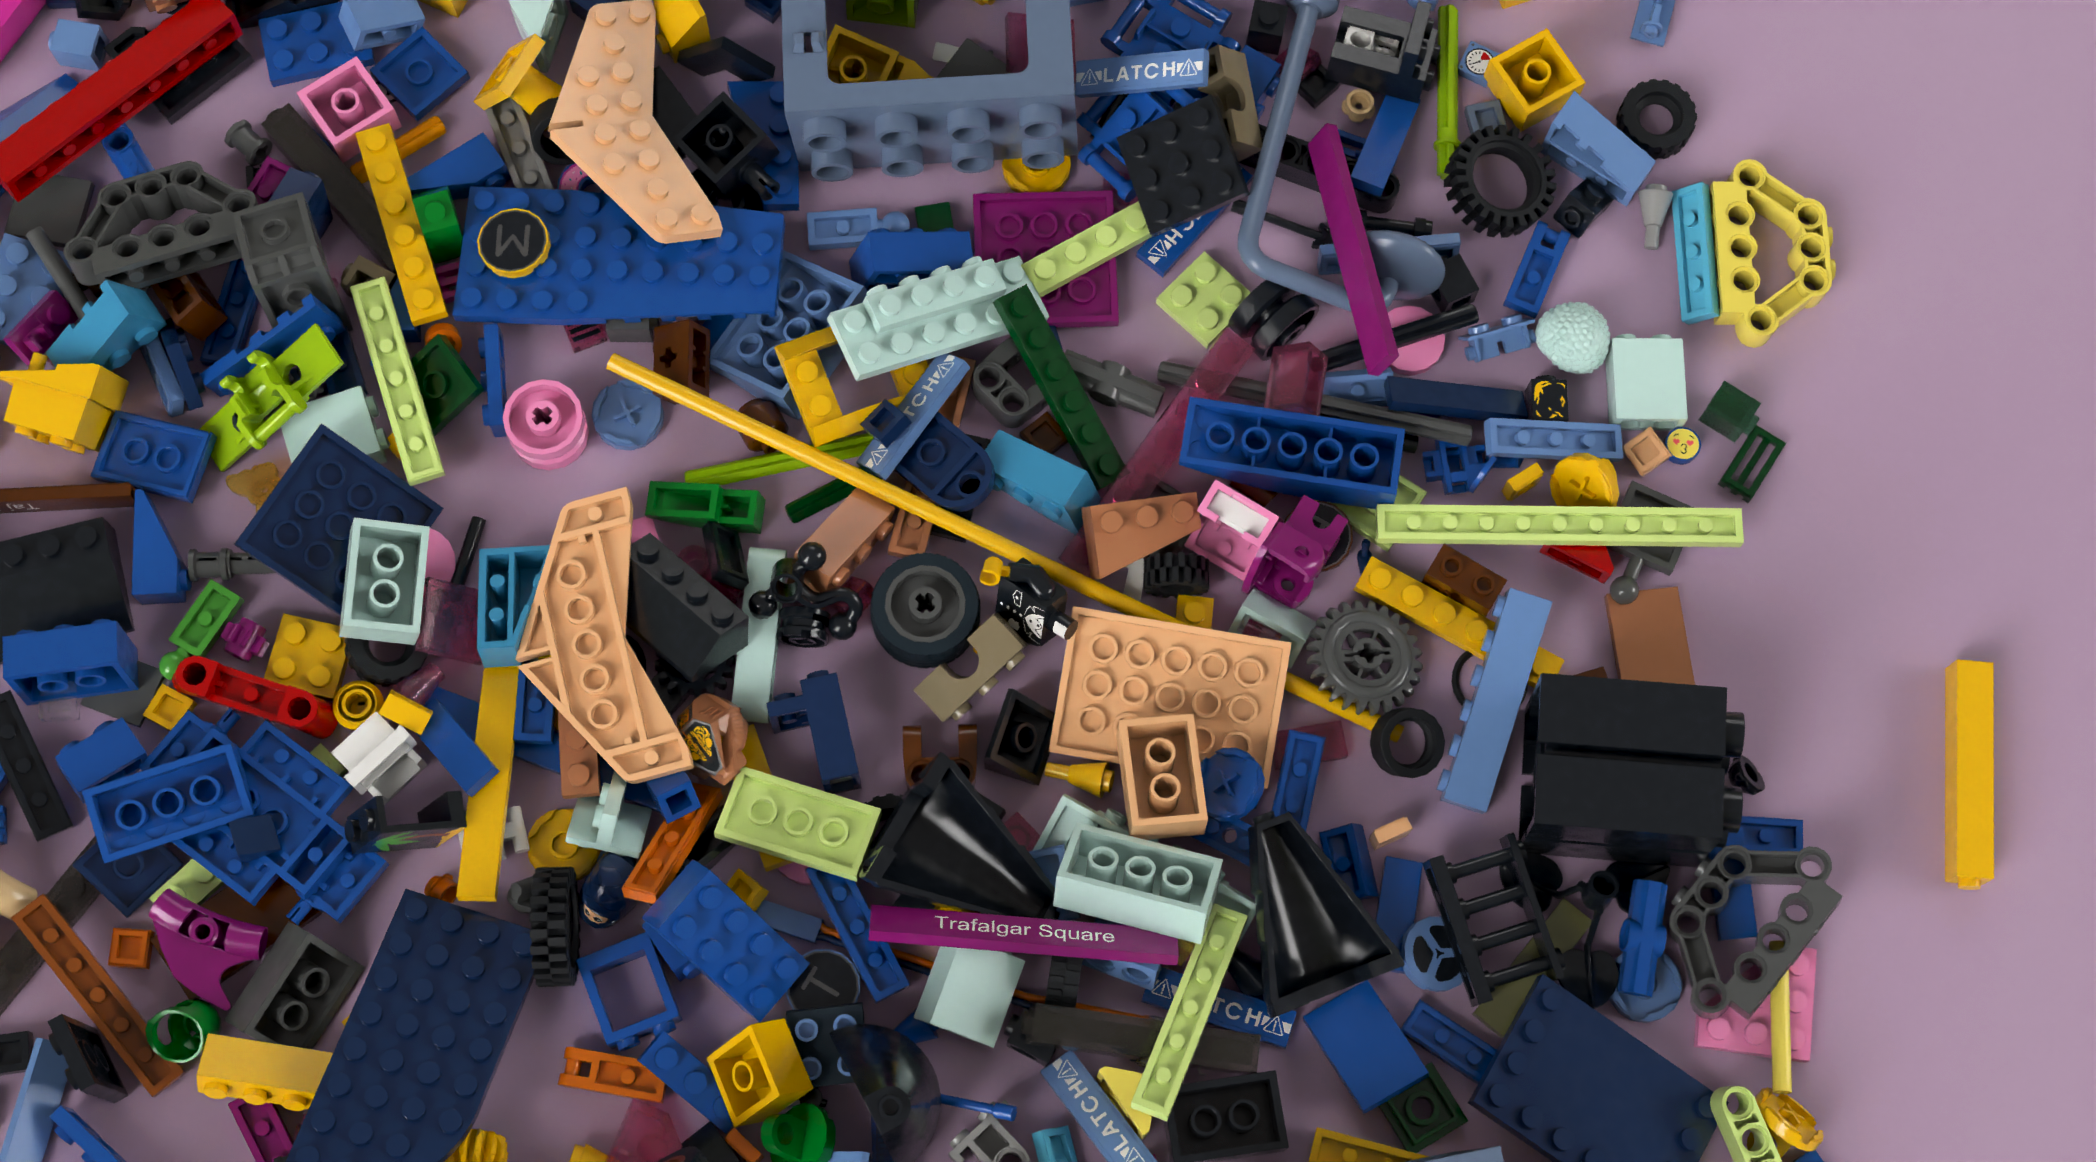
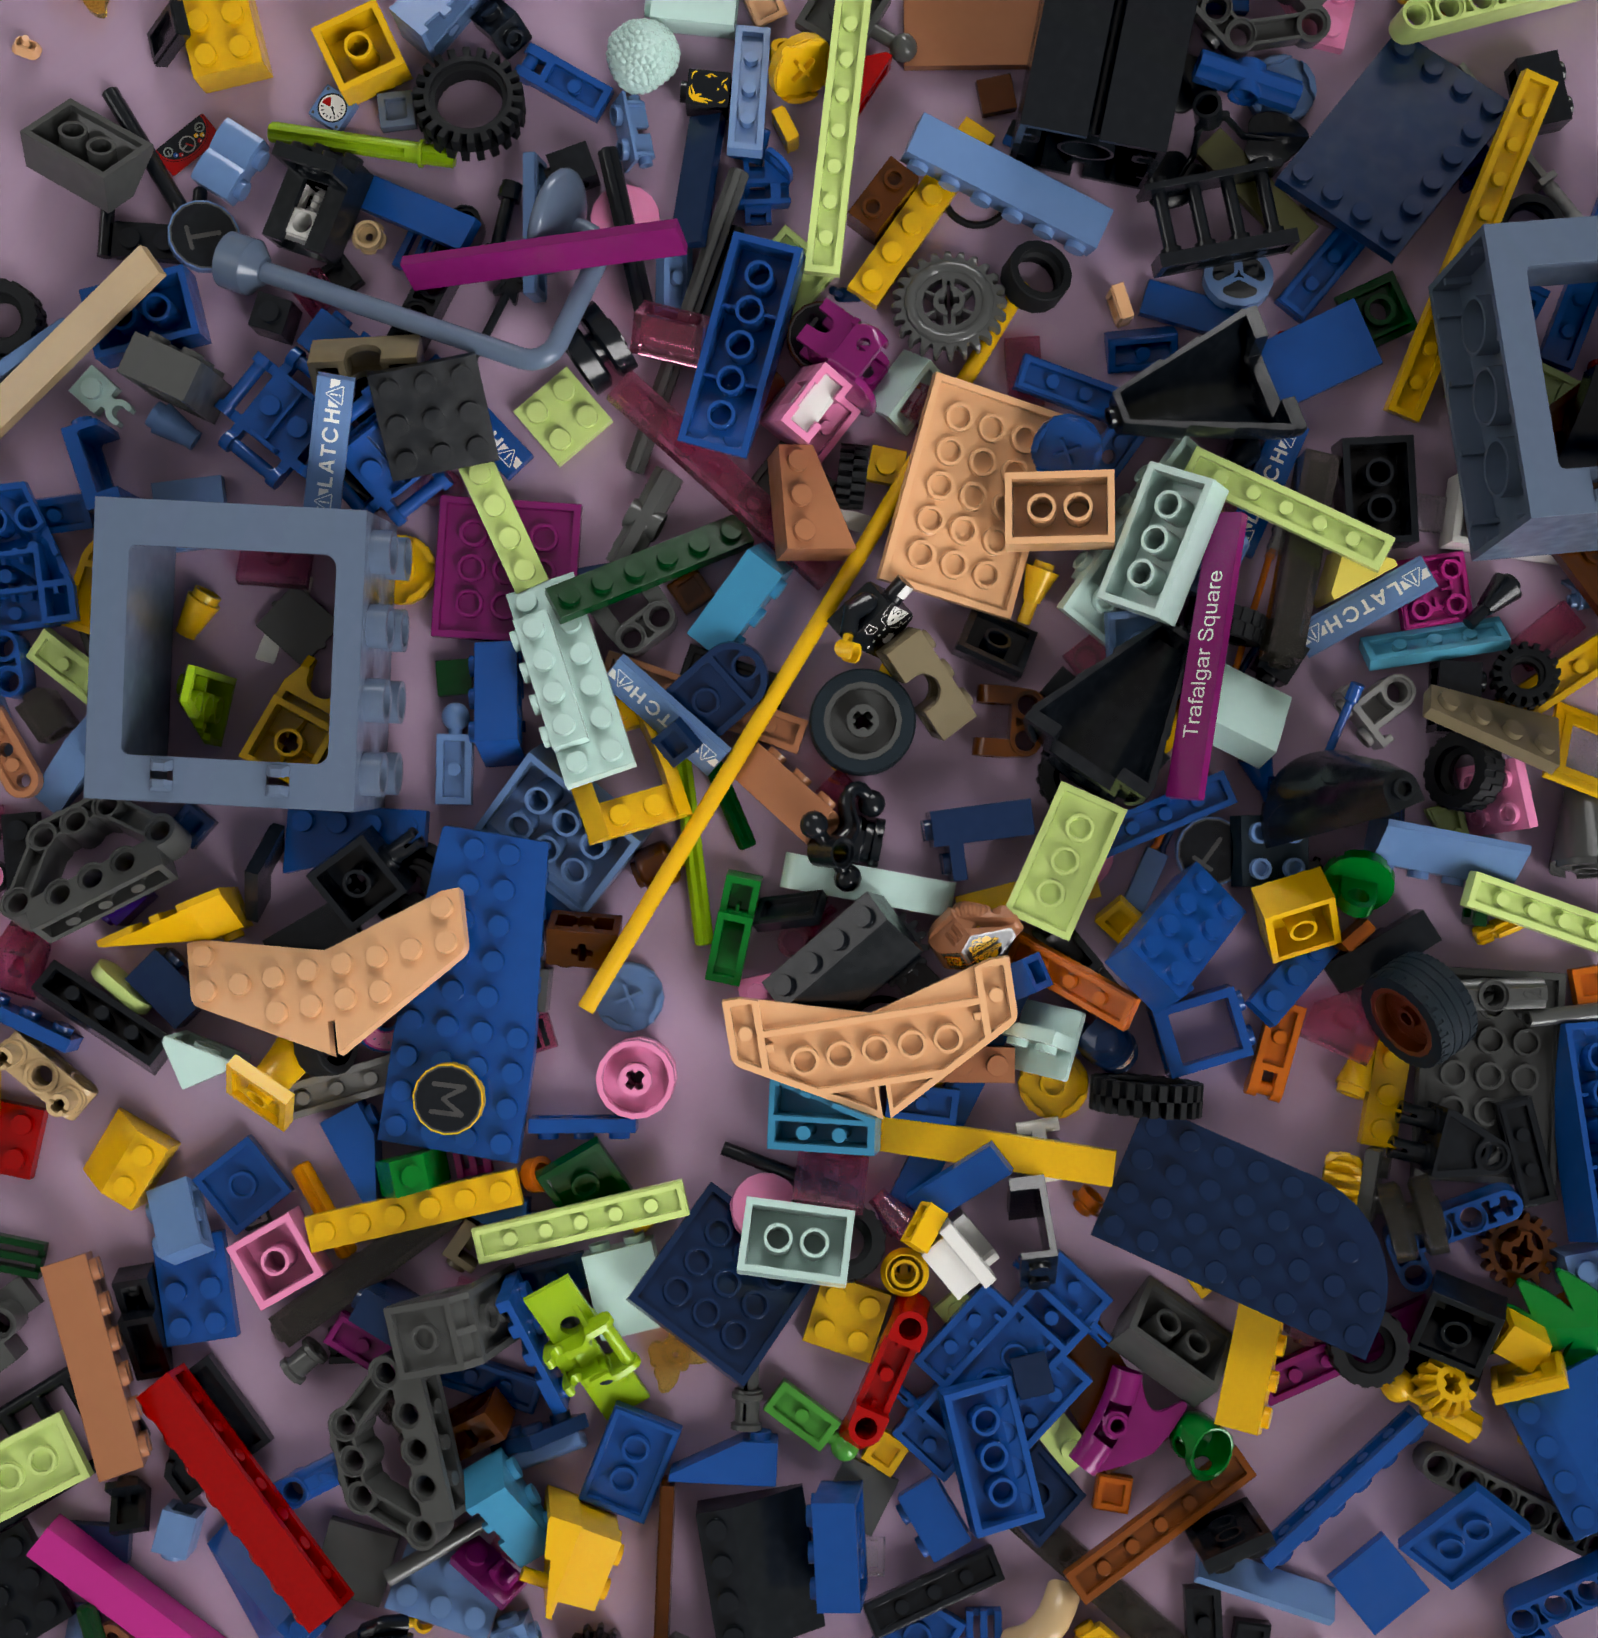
camera: 75 degrees left, 15 degrees up
(245, 639) = (827, 1378): magenta gear -> none
(520, 894) = (1099, 1124): dark grey plate -> none

